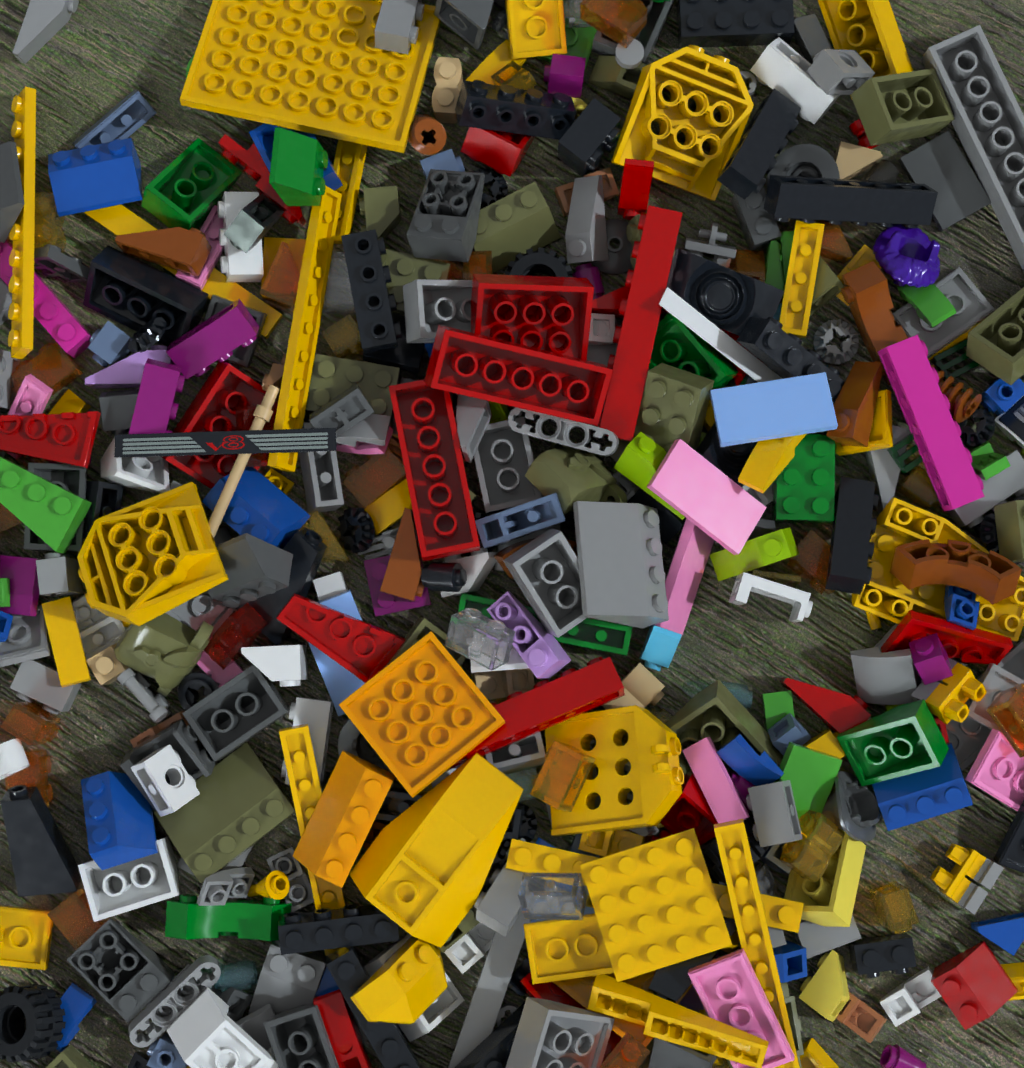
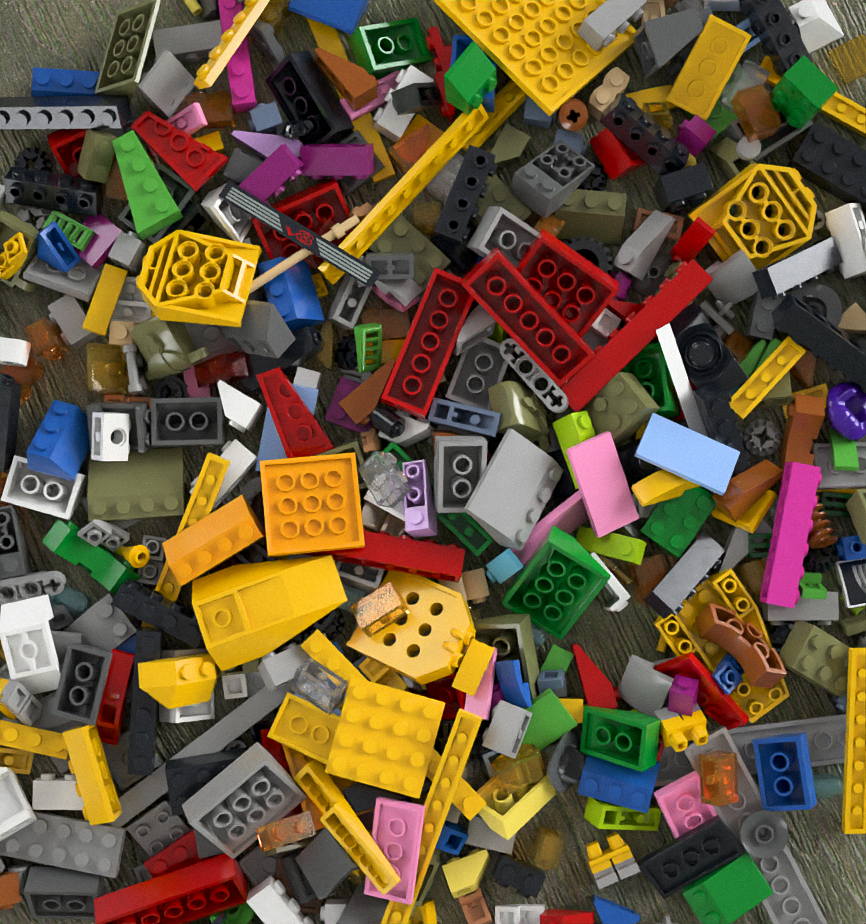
camera: 25 degrees right, 0 degrees up
(115, 713) = (106, 369): none -> clear yellow slope
(355, 503) = (361, 349): none -> bright green slope
(388, 161) = (535, 116): none -> sand blue brick
(440, 607) = (371, 441): none -> medium nougat slope
(698, 772) = (473, 667): none -> yellow slope
(700, 198) = (732, 278): none -> light grey slope
(725, 630) = (556, 583): none -> green slope
(938, 831) = (612, 816): none -> lime slope

